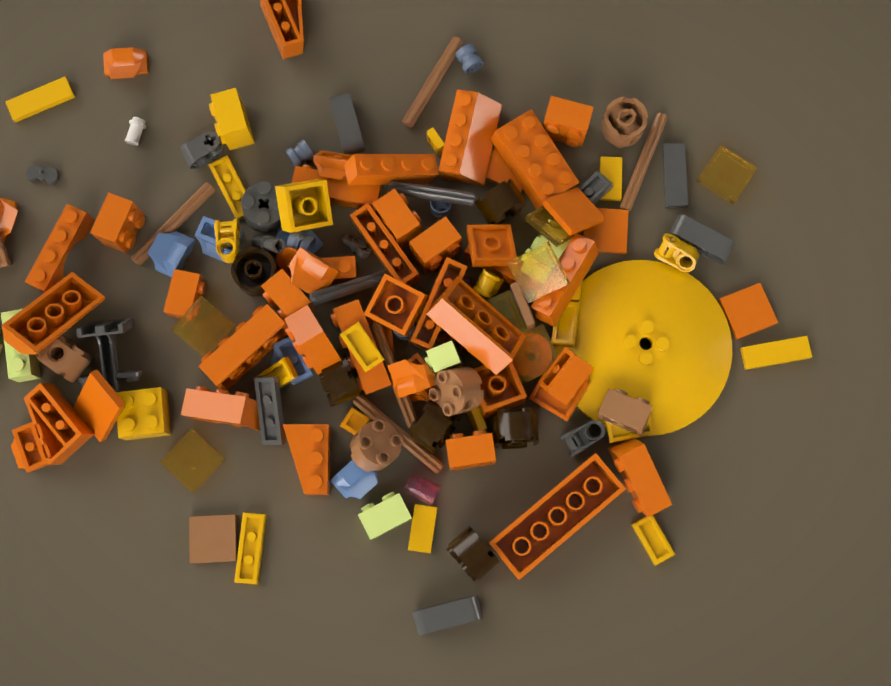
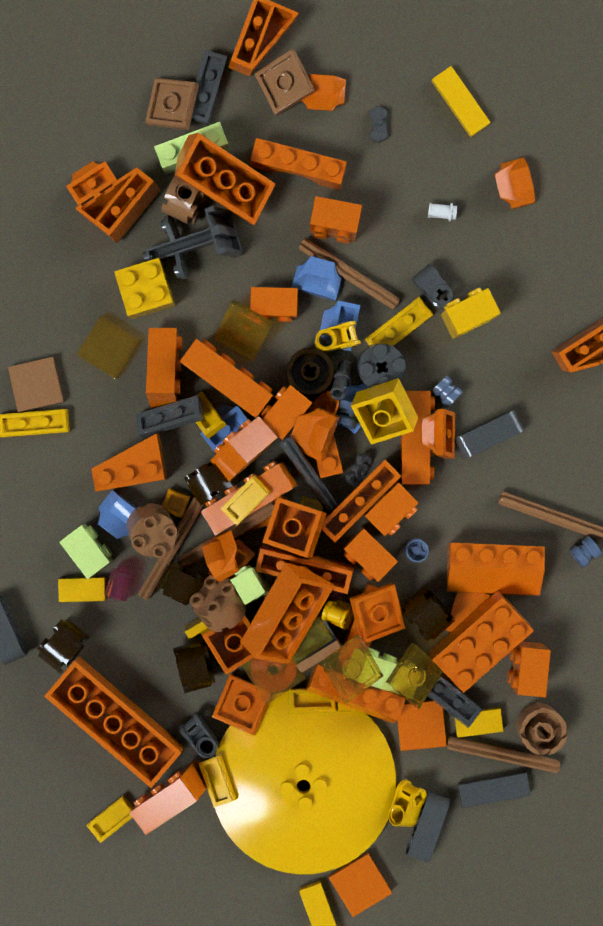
camera: 80 degrees right, 10 degrees up
(99, 405) = (142, 245): orange tile -> none
(383, 168) = (442, 493): orange brick -> none
(433, 193) = (424, 540): dark grey axle -> none
(435, 141) = (485, 532): yellow tile -> none
(470, 450) = (163, 626): orange brick -> none
(565, 376) = (253, 711): orange brick -> none
(573, 211) = (429, 692): orange tile -> none
(625, 411) = (227, 777): medium nougat brick -> none
(726, 174) = (504, 843): clear yellow tile -> none

